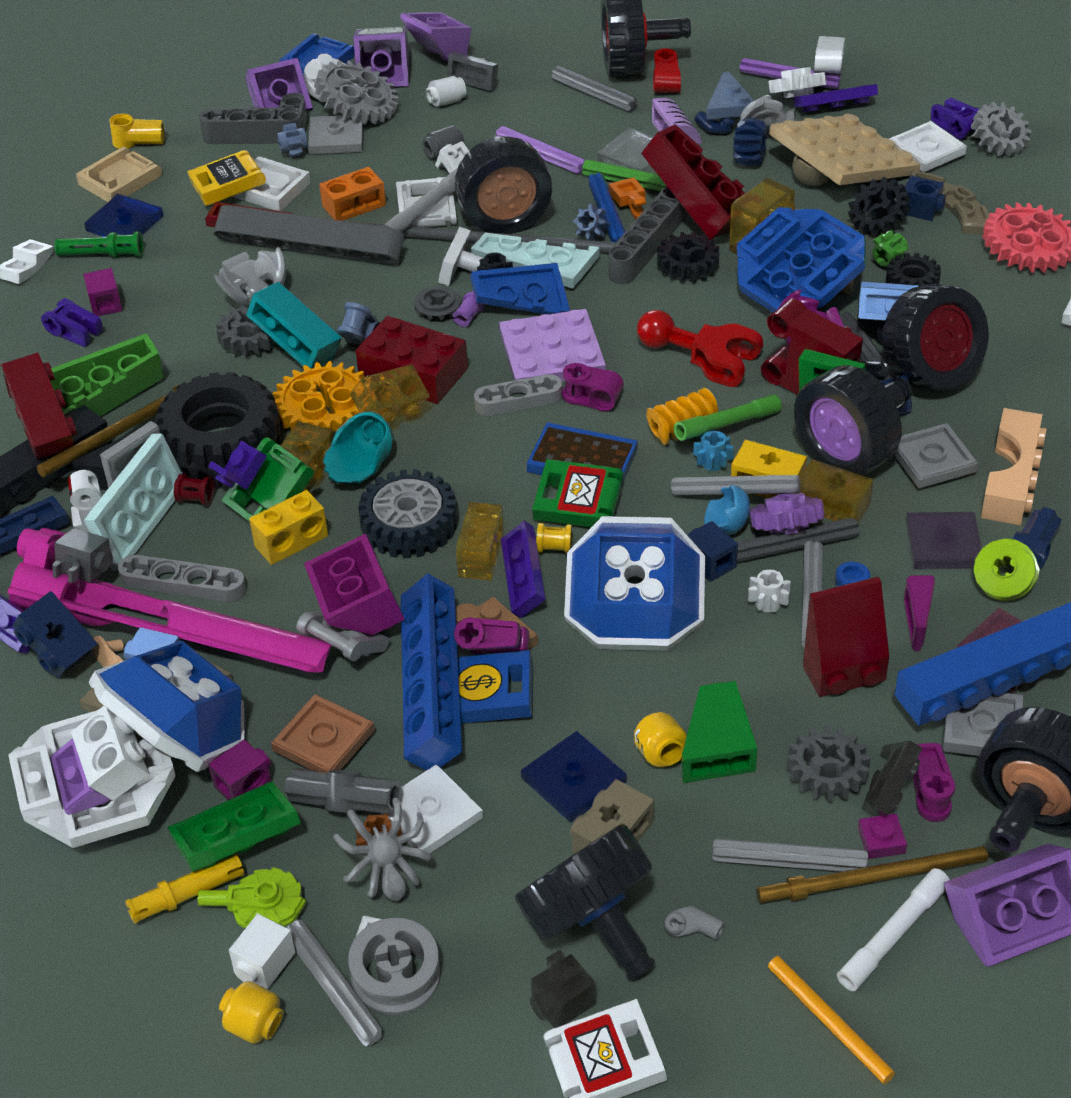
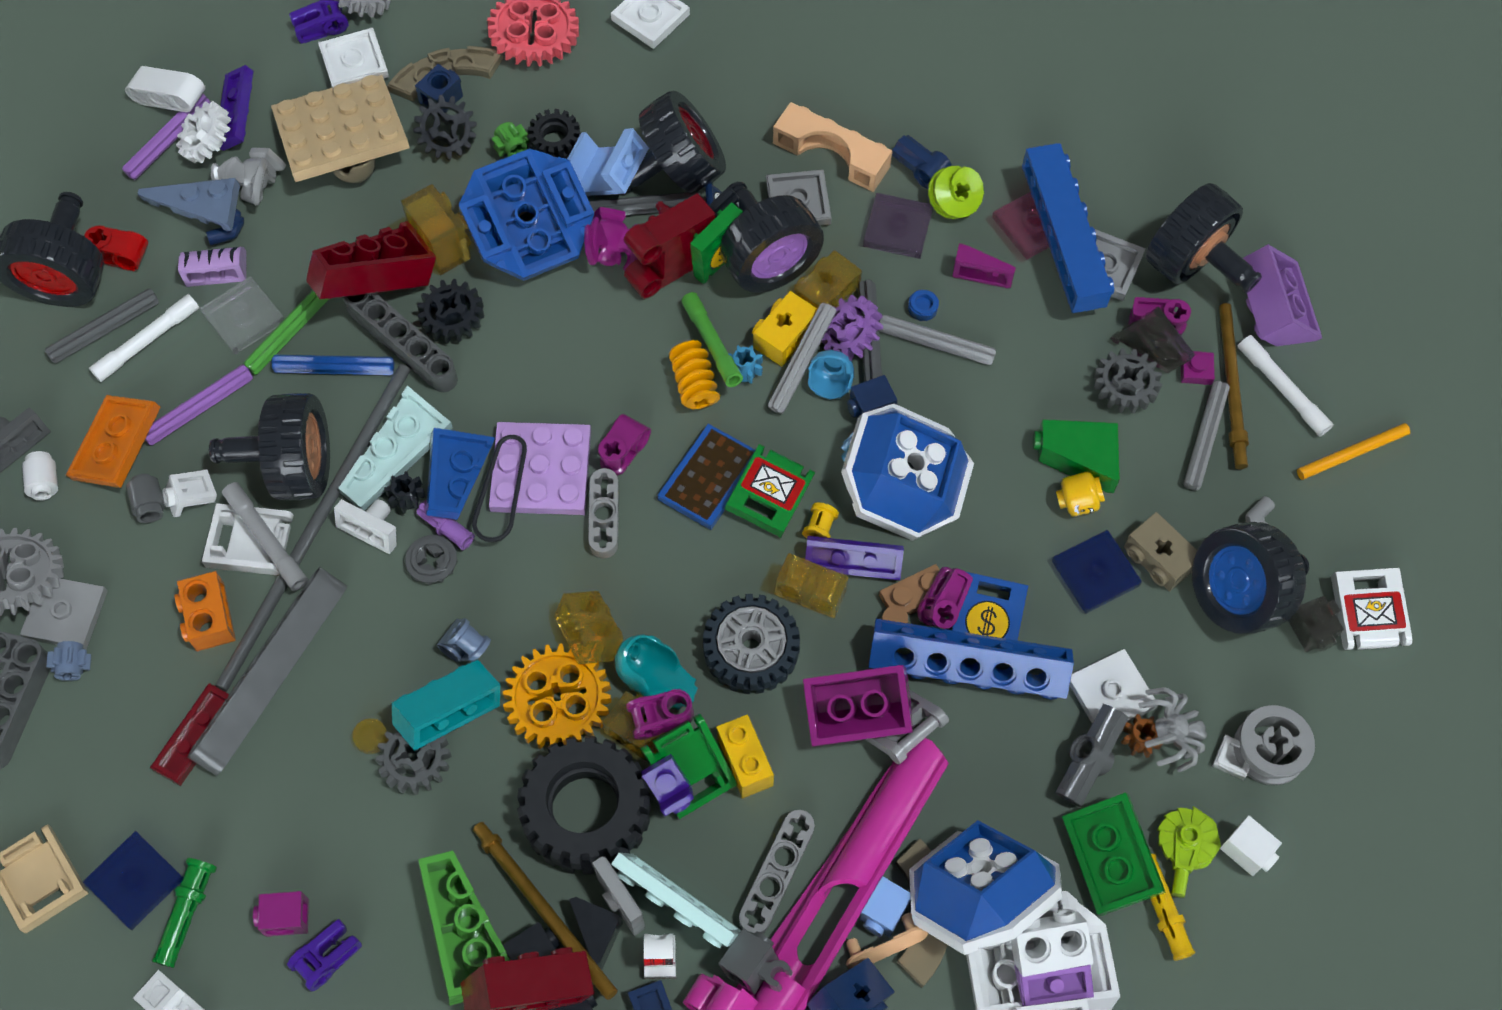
camera: 80 degrees left, 20 degrees up
(183, 487) = (656, 844): dark red bush -> none
(228, 177) = (111, 738): yellow container -> none
(240, 770) = (1049, 838): magenta brick -> none
(249, 276) = (323, 745): light grey animal -> none
(251, 1012) = (1306, 862): yellow head -> none
(281, 185) = (127, 709): white container -> none
(308, 445) = (657, 713): none -> magenta piece
(323, 735) = (1016, 766): nougat plate -> none
(335, 984) = (1275, 797): light grey axle -> none
(398, 343) = (524, 598): dark red brick -> none
(489, 115) = (113, 441): none -> orange tile
(518, 329) = (486, 483): none -> black piece
(565, 101) = (115, 359): none -> white piece
(590, 215) = (371, 383): sand blue gear -> none
(629, 193) = (320, 337): orange plate -> none
(712, 348) = (597, 329): red piece -> none
(750, 142) = (291, 203): dark blue gear -> none
(769, 591) = (932, 369): white gear -> none
(846, 637) = (1025, 328): dark red slope -> none

